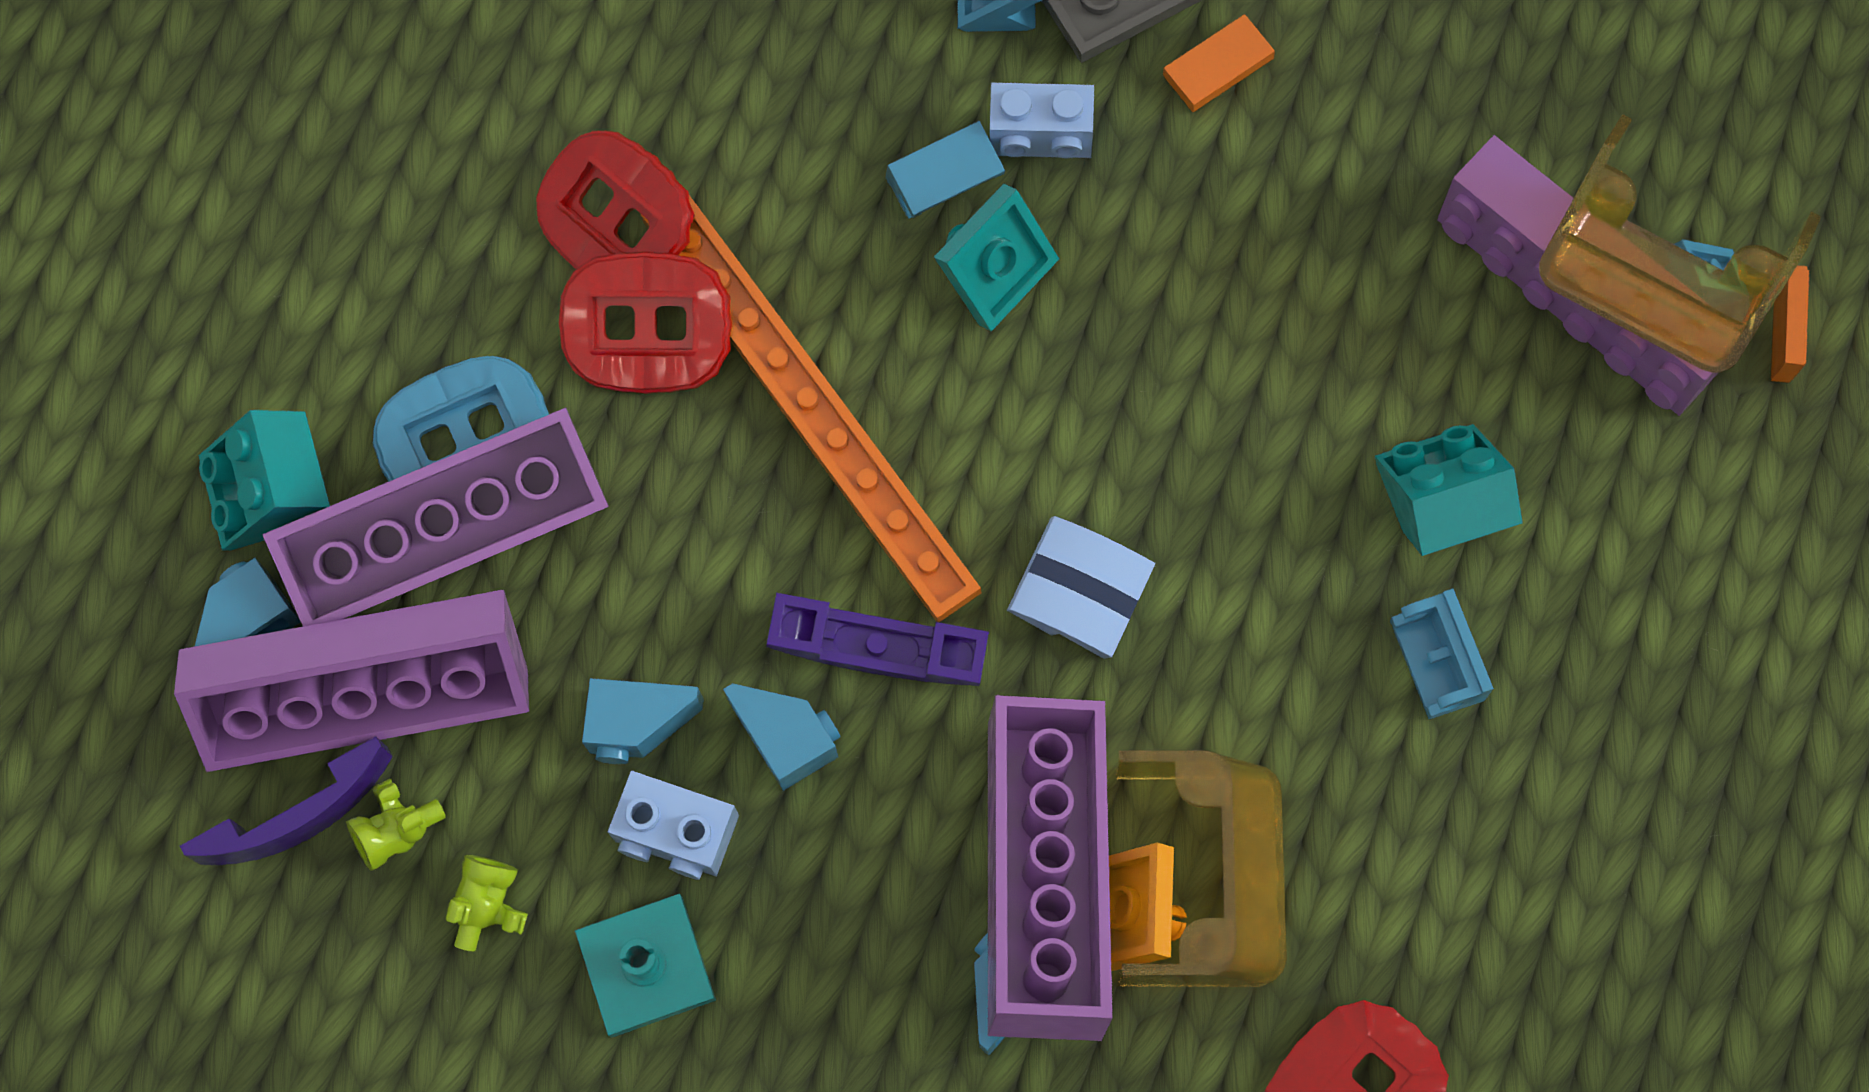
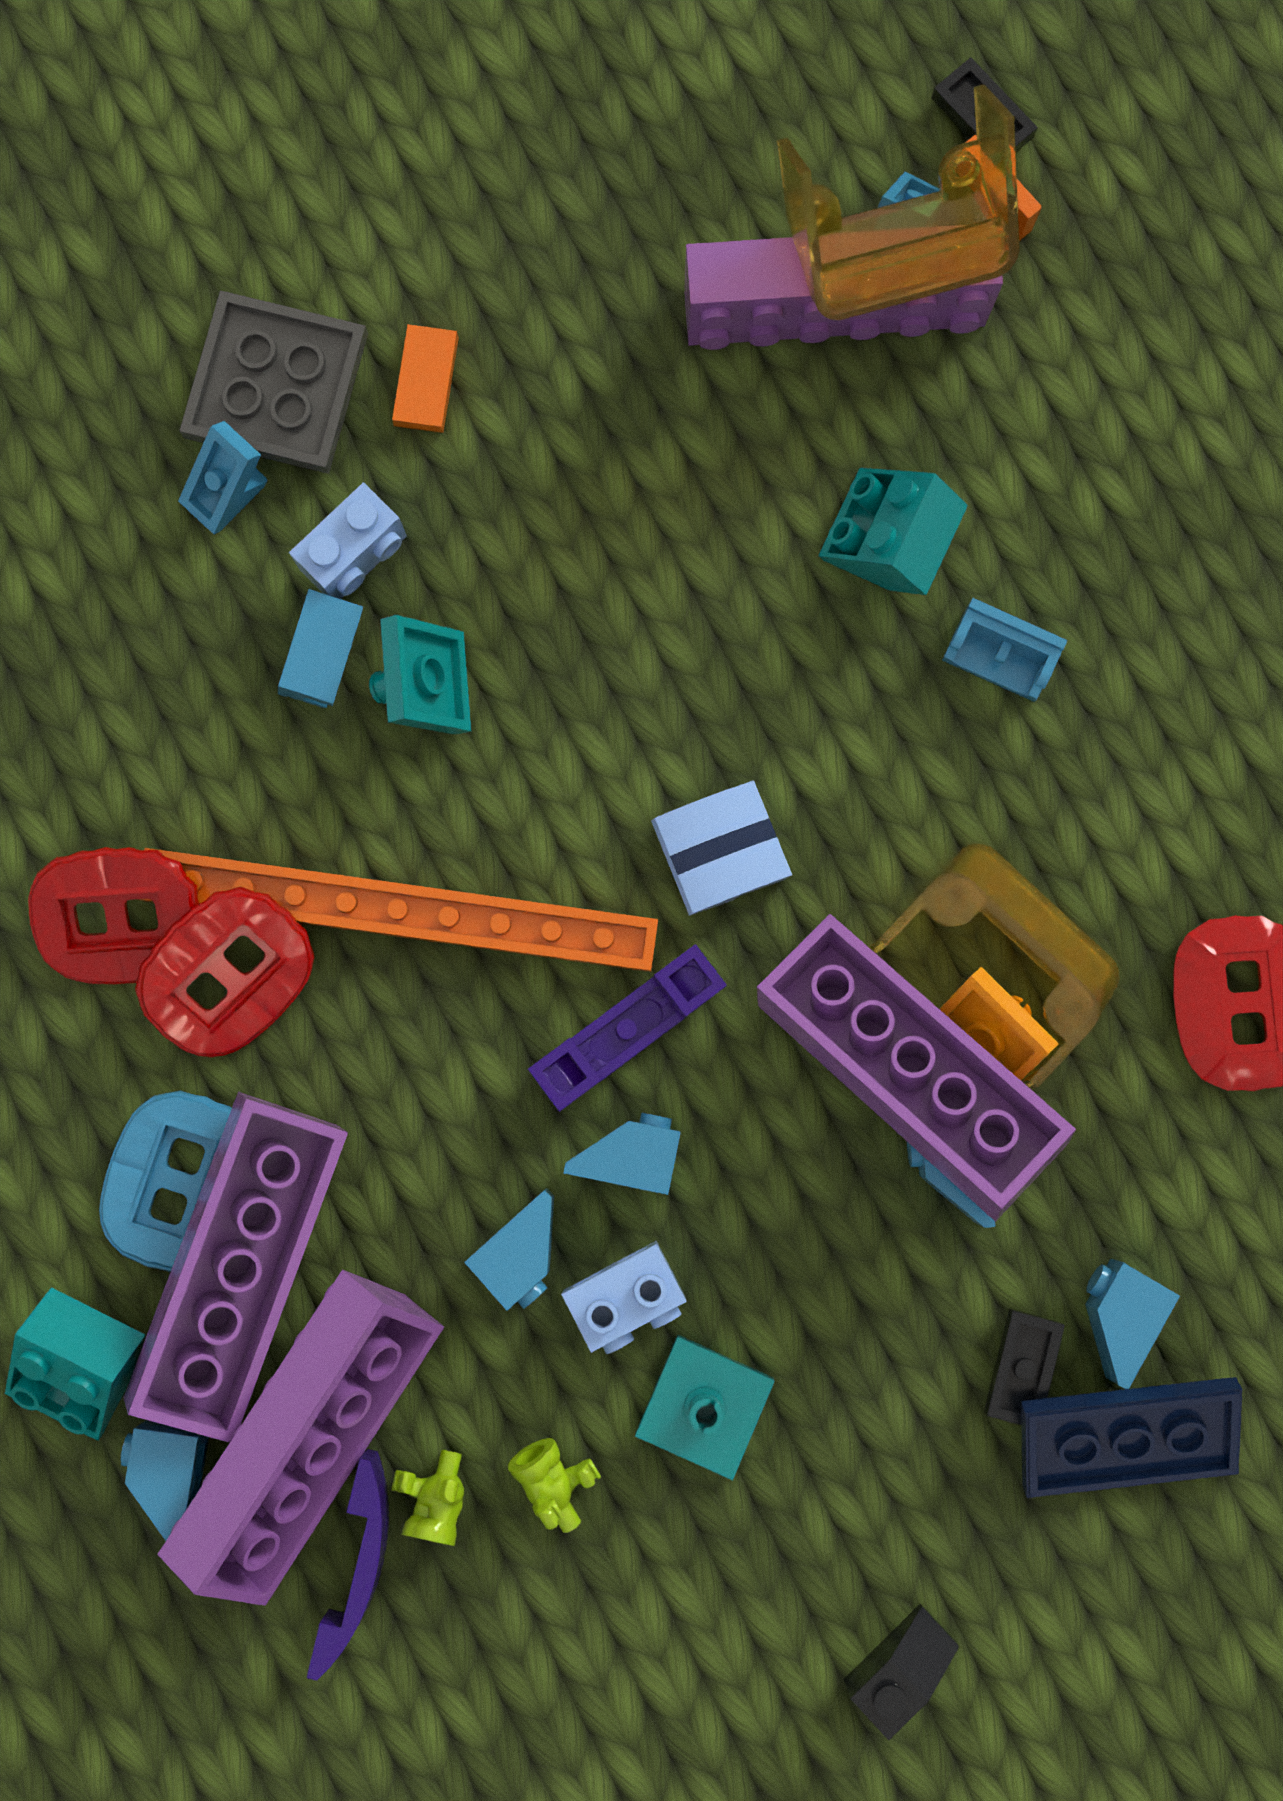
camera: 50 degrees left, 10 degrees up
(1838, 263) = (957, 100): none -> black plate

